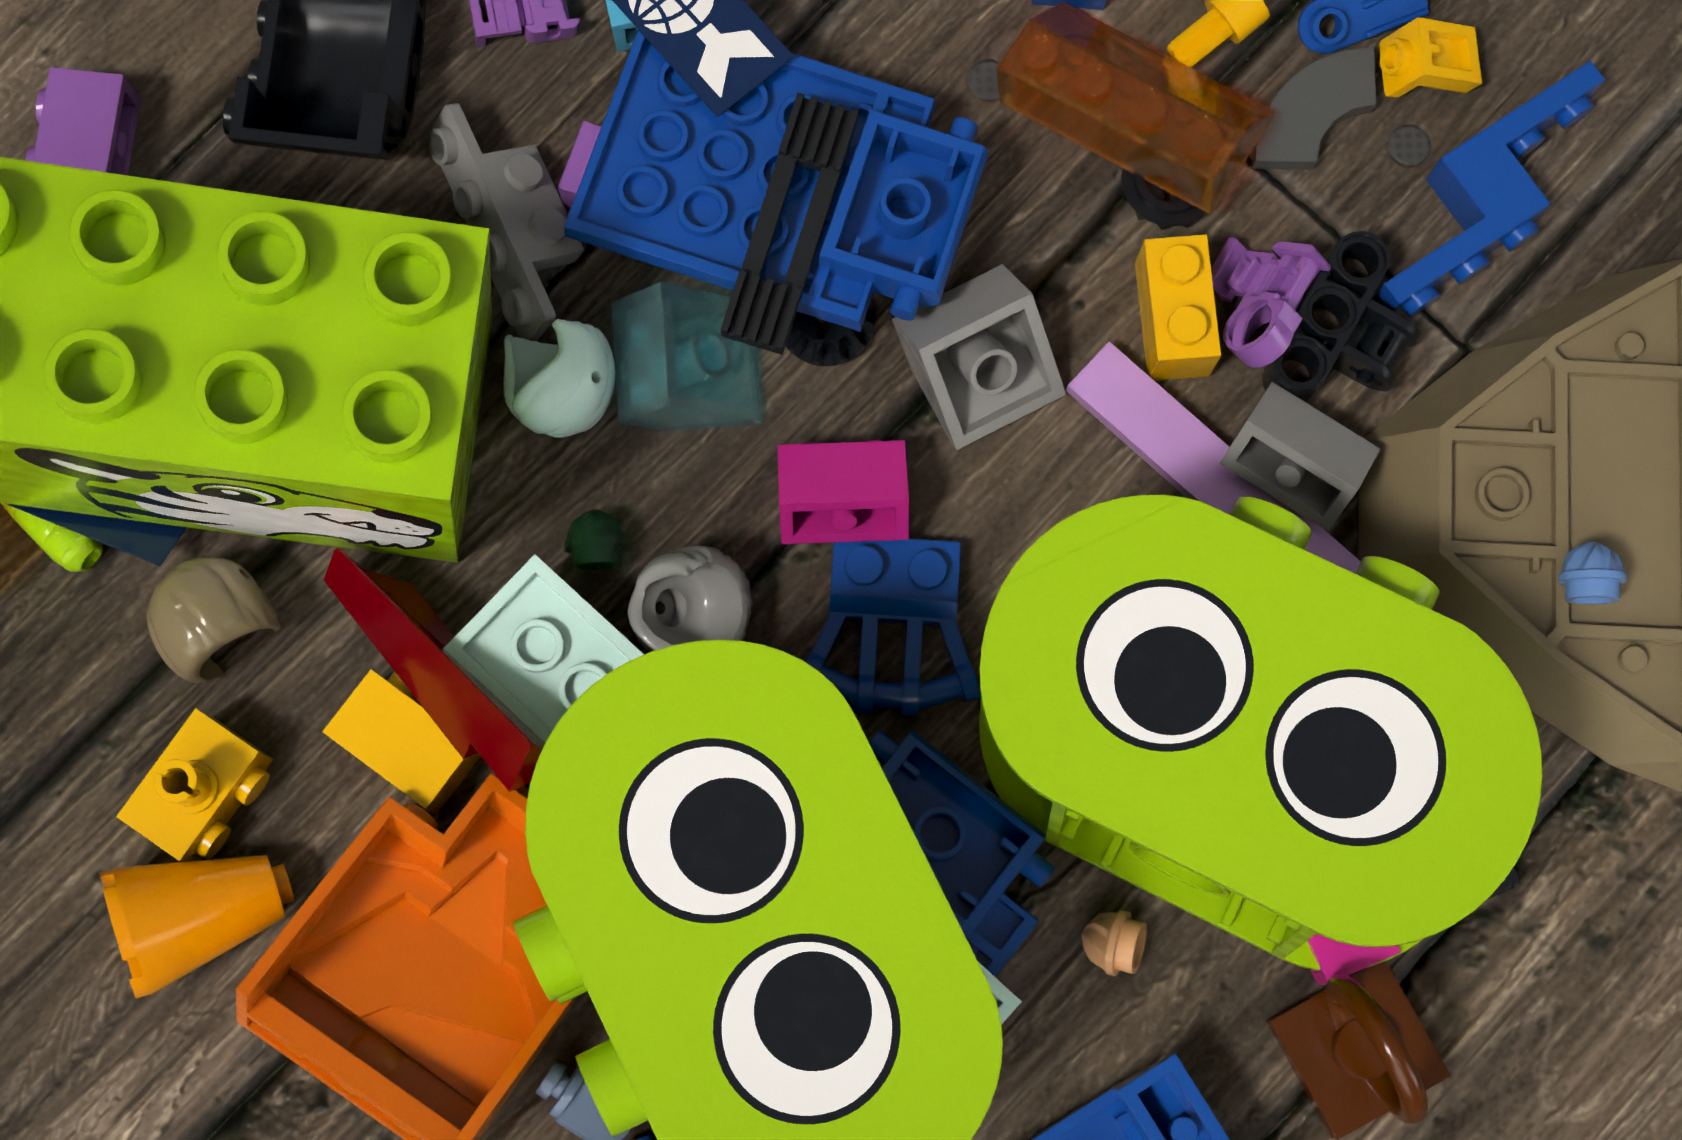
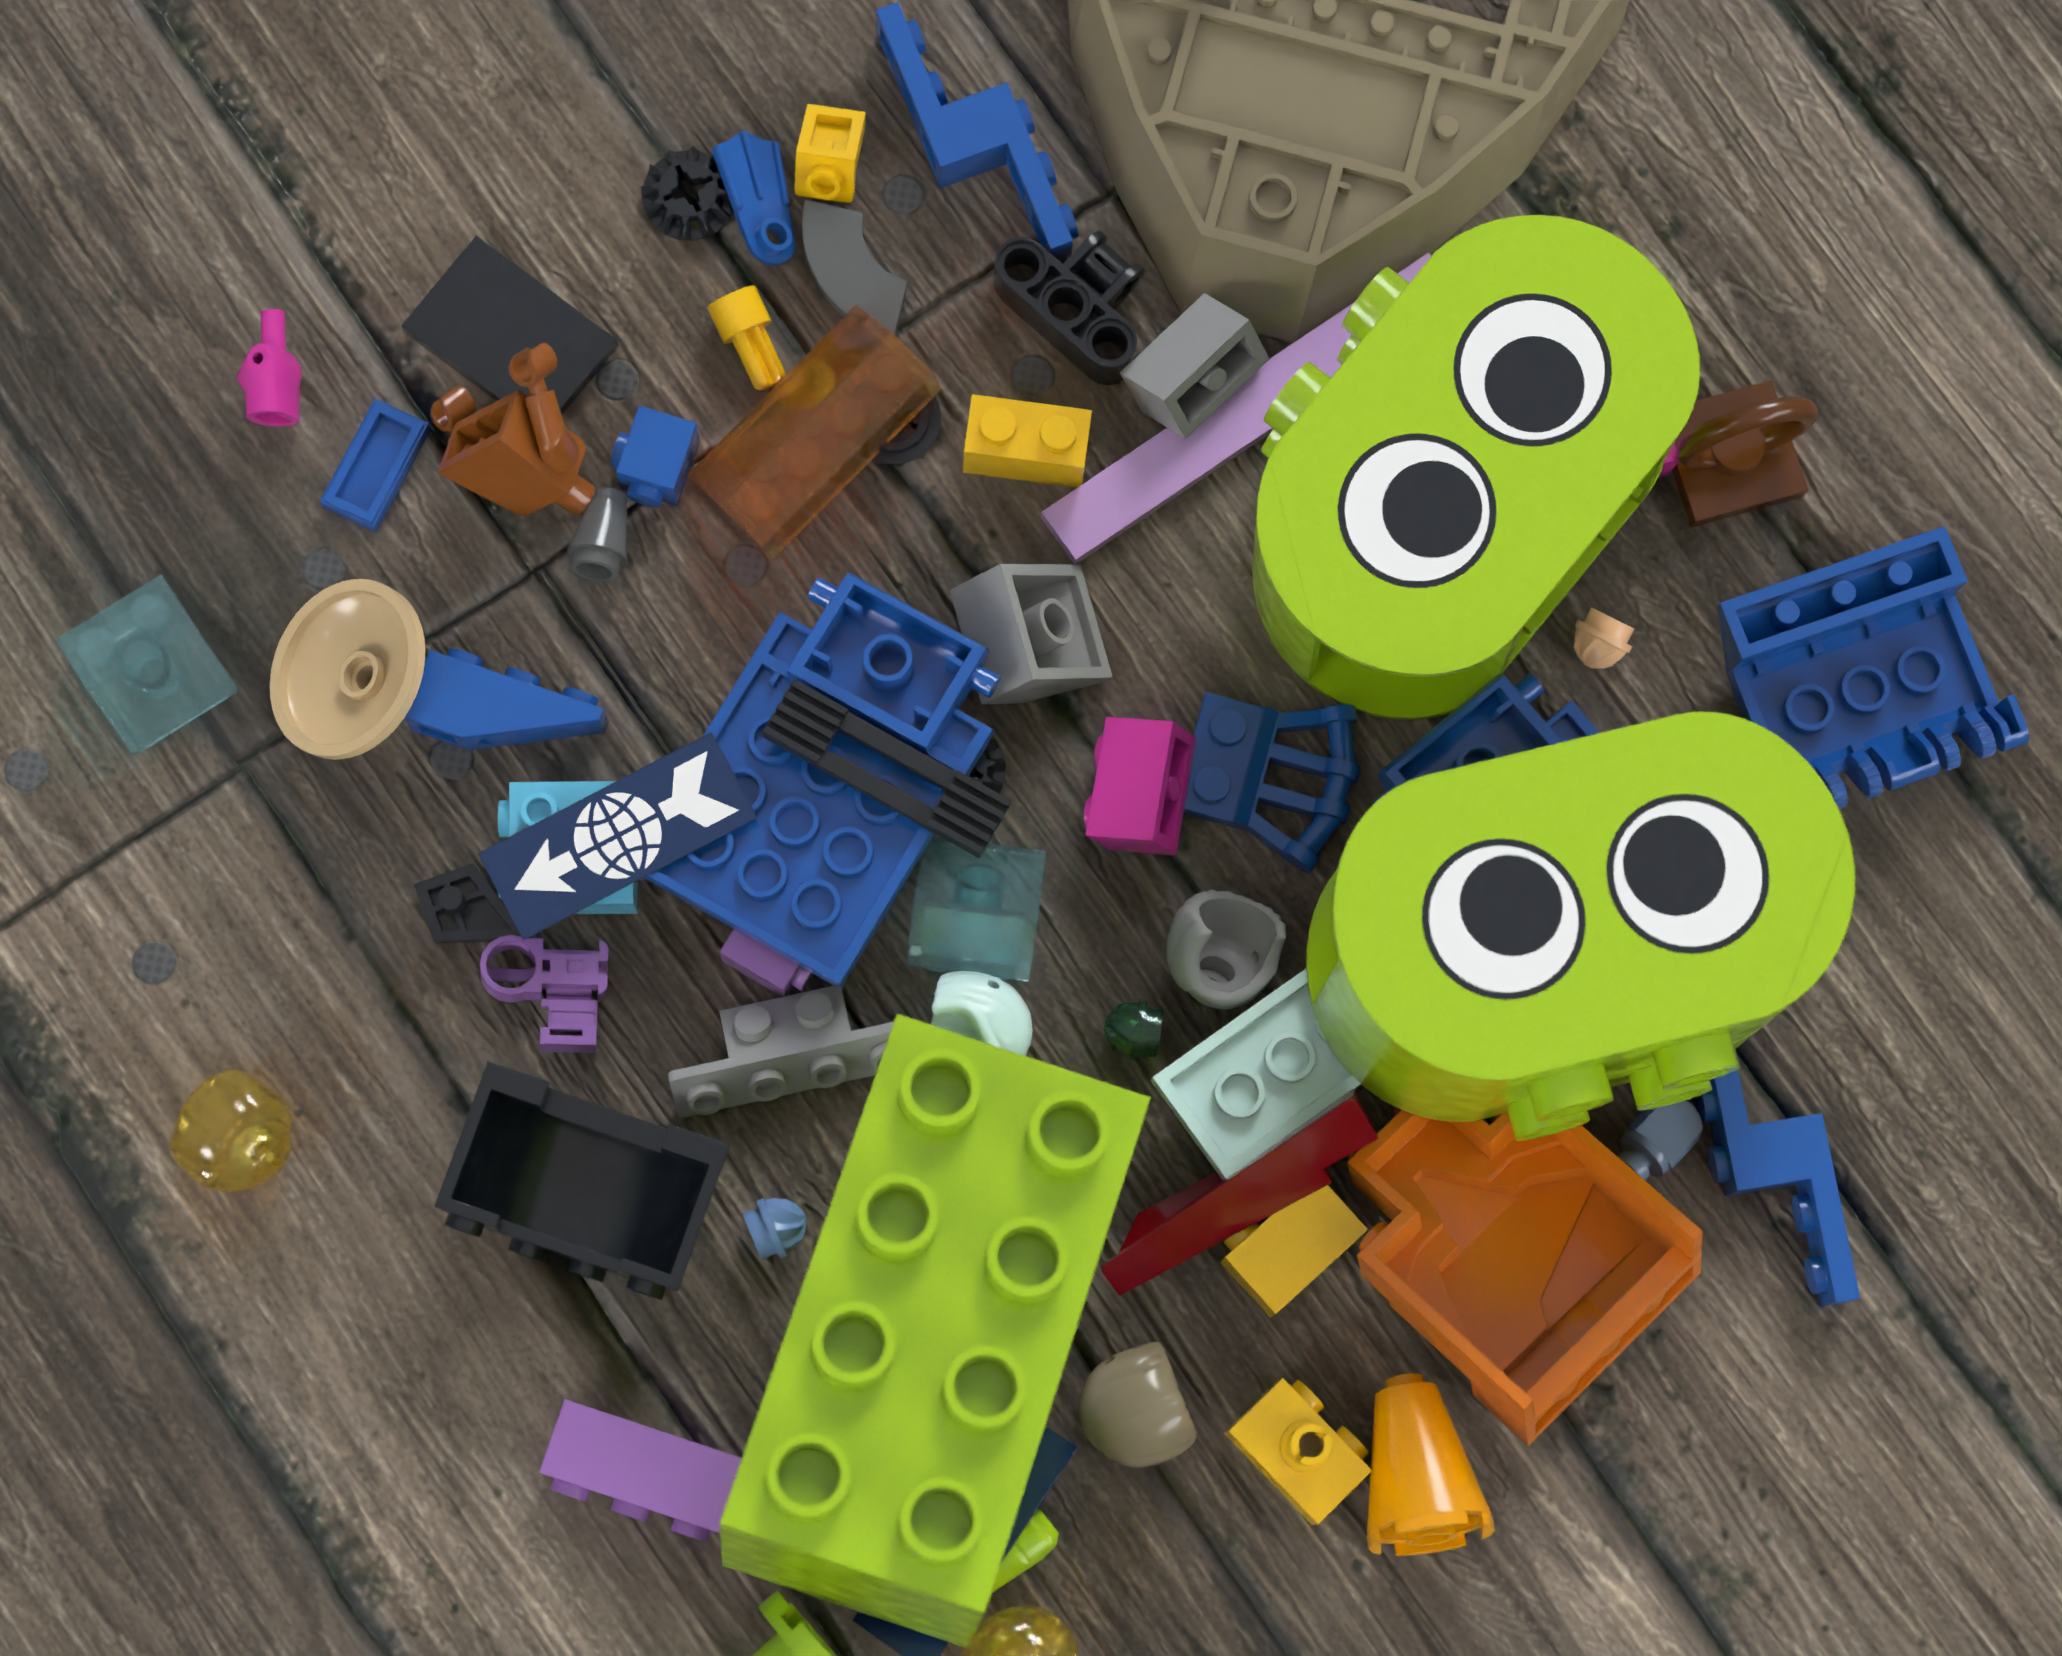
camera: 85 degrees left, 0 degrees up
(1269, 294) = (1033, 343): medium lavender piece -> none
(1592, 575) = (1369, 139): medium blue plate -> none

